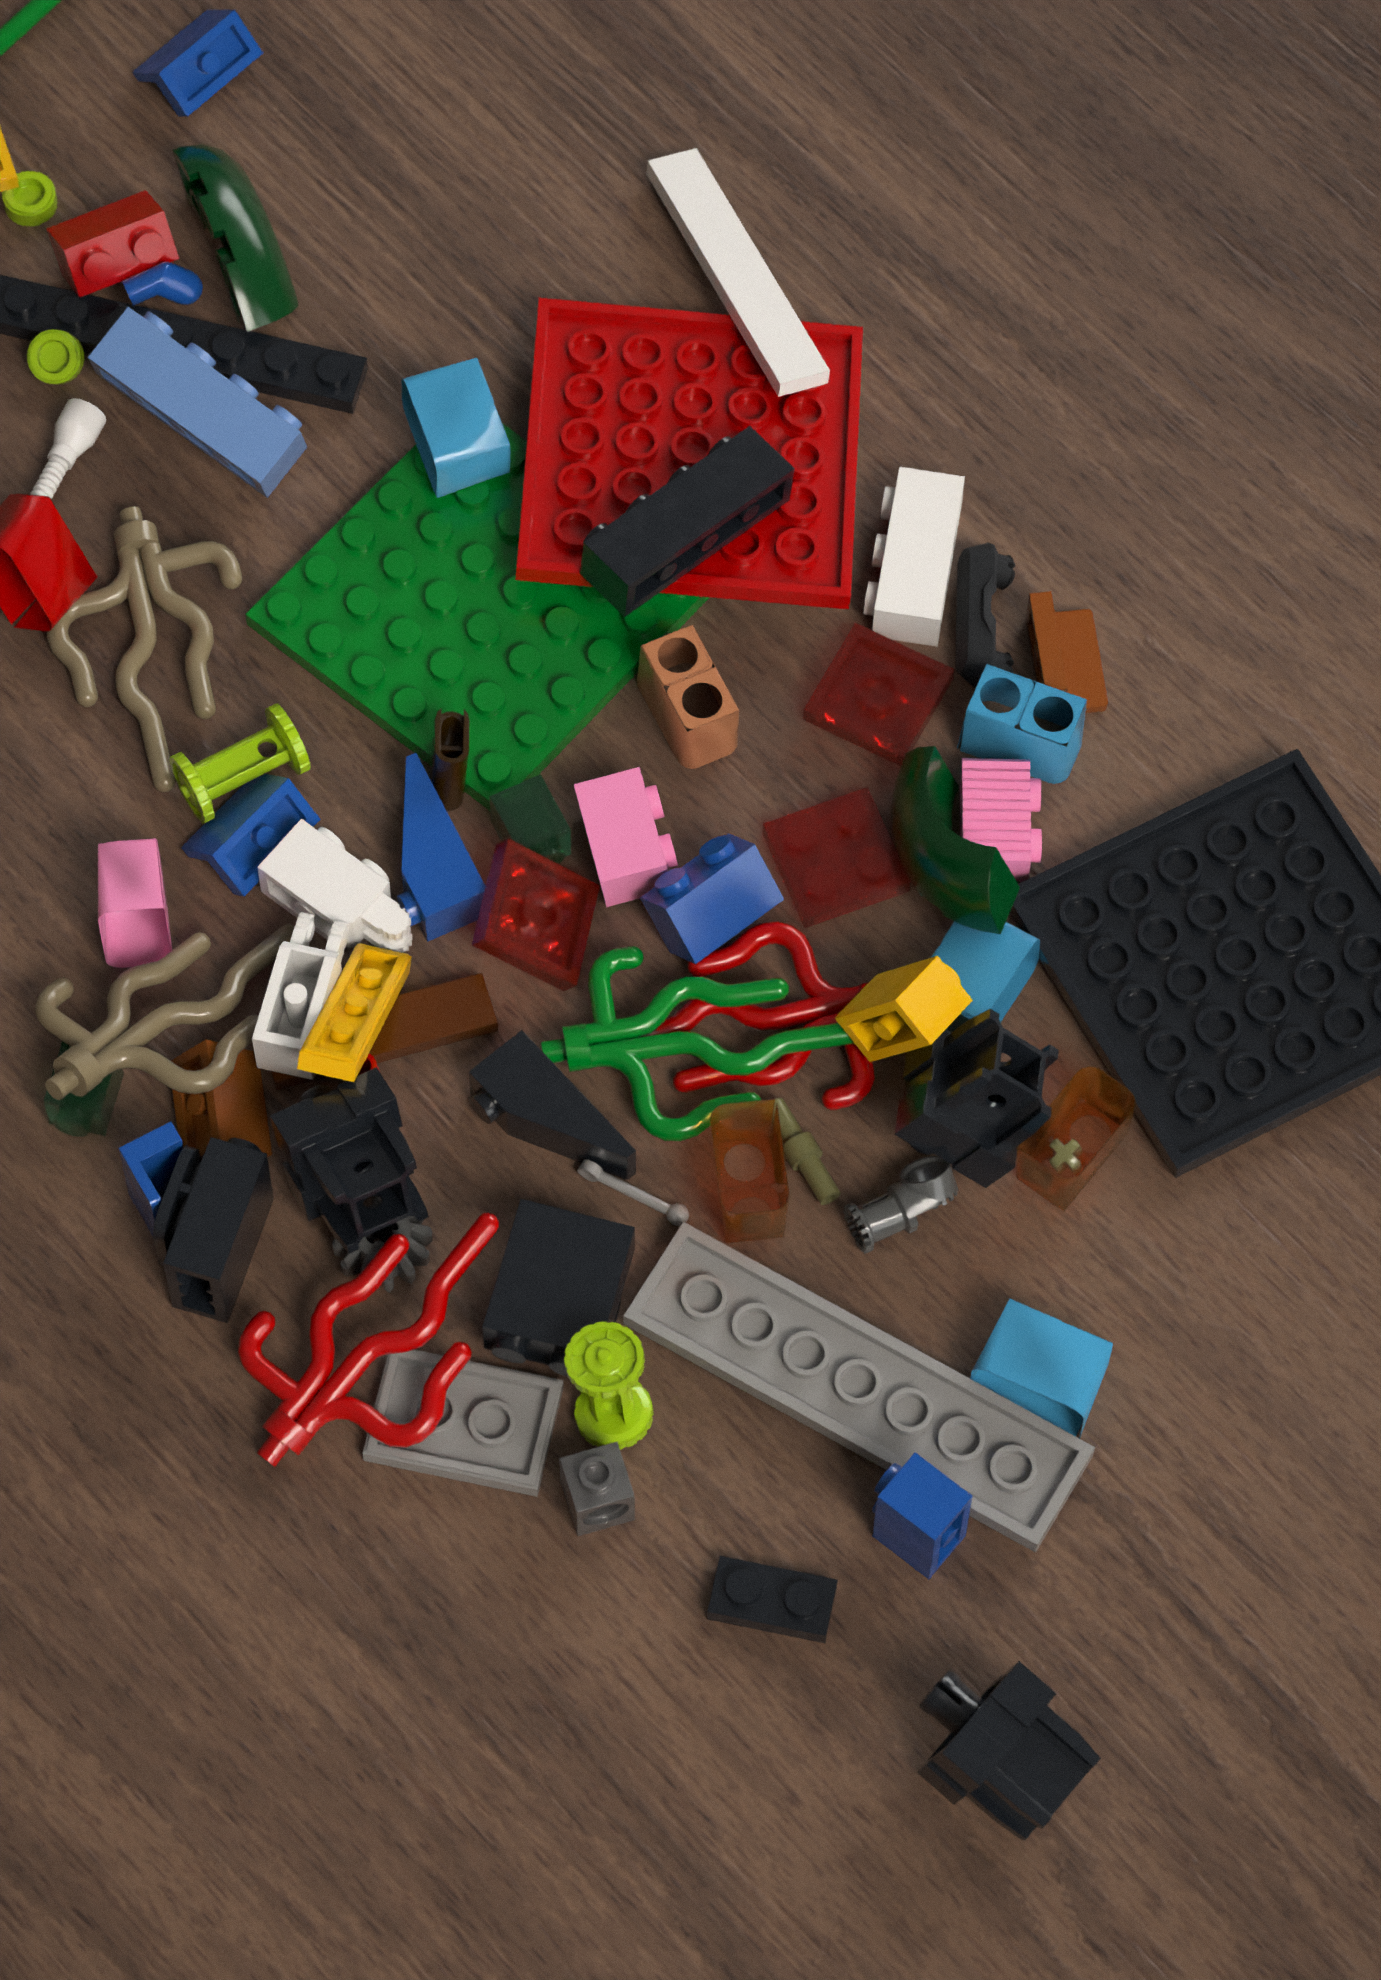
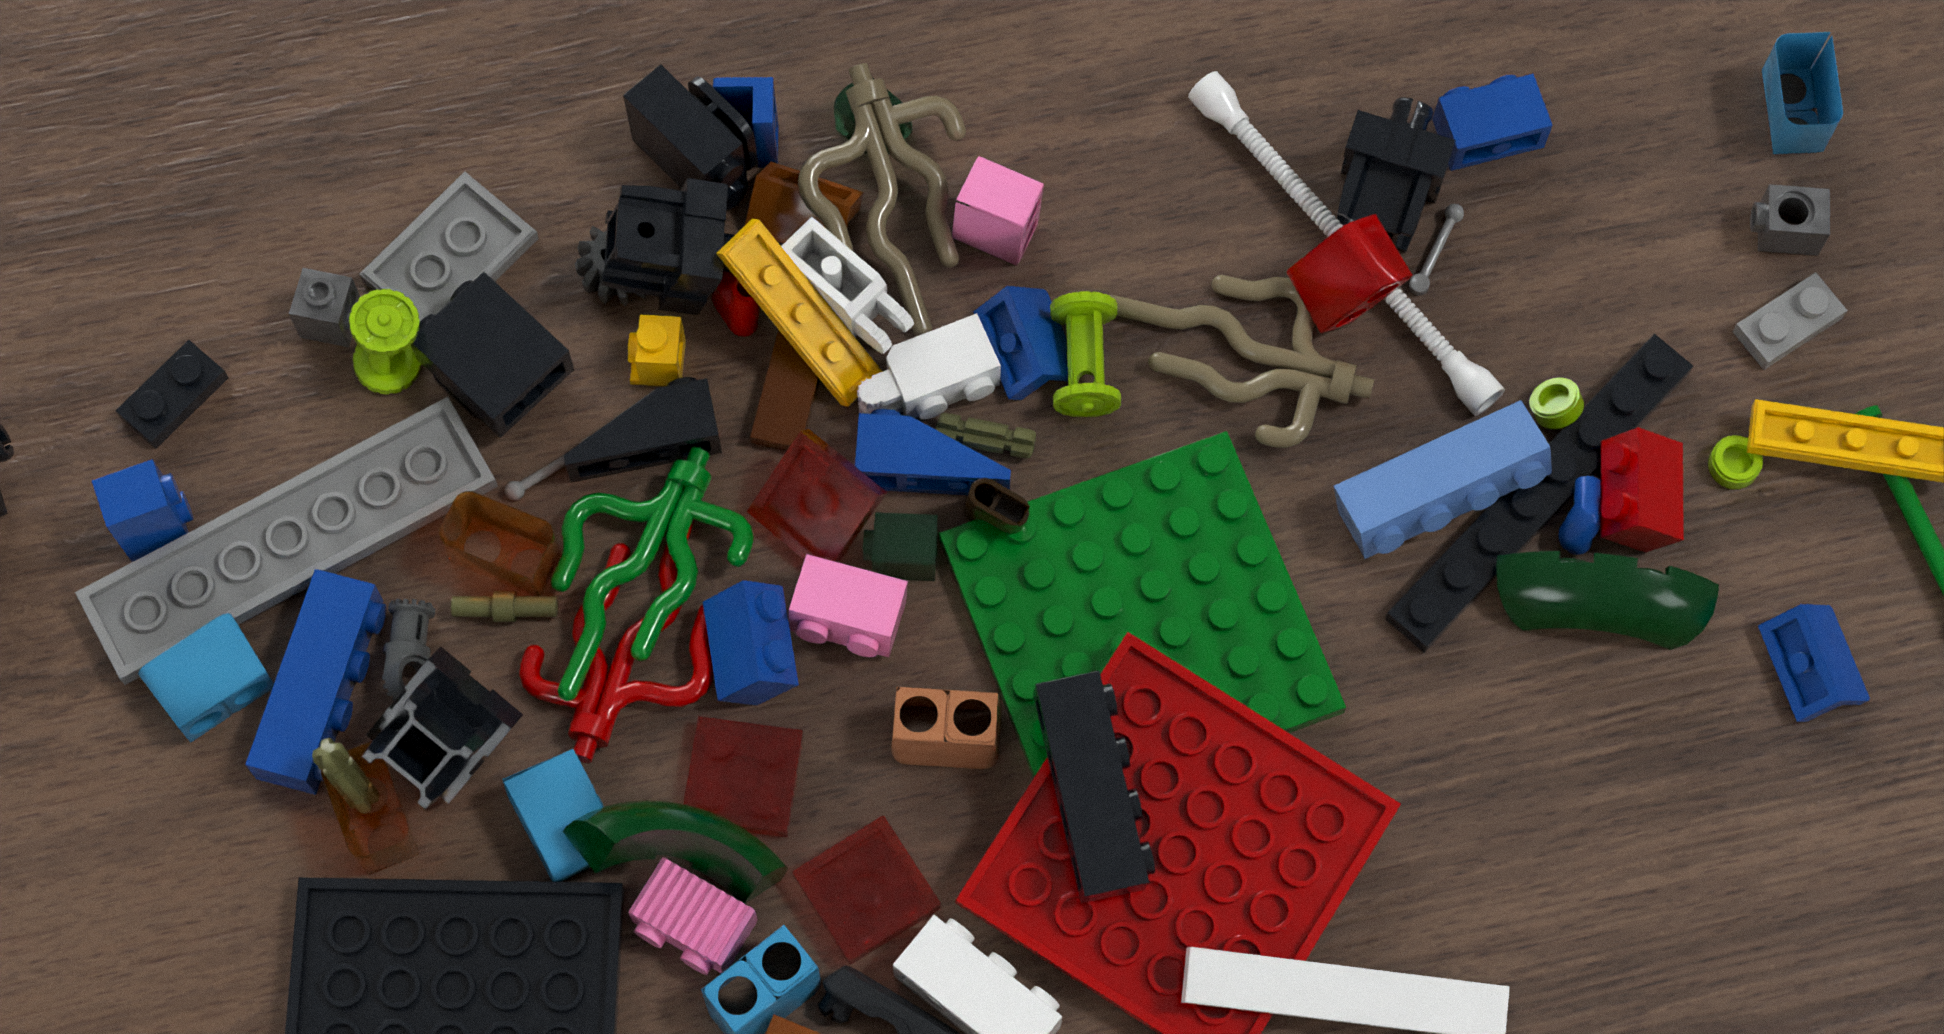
camera: 120 degrees right, 5 degrees up
(315, 1401) = (518, 148): red plant -> none
(370, 818) = (988, 435): none -> olive axle
(456, 426) = (1301, 661): dark azure piece -> none
(460, 1149) = (656, 350): none -> yellow brick
(904, 1008) = (539, 712): yellow brick -> none
(983, 1267) = (316, 679): none -> blue brick

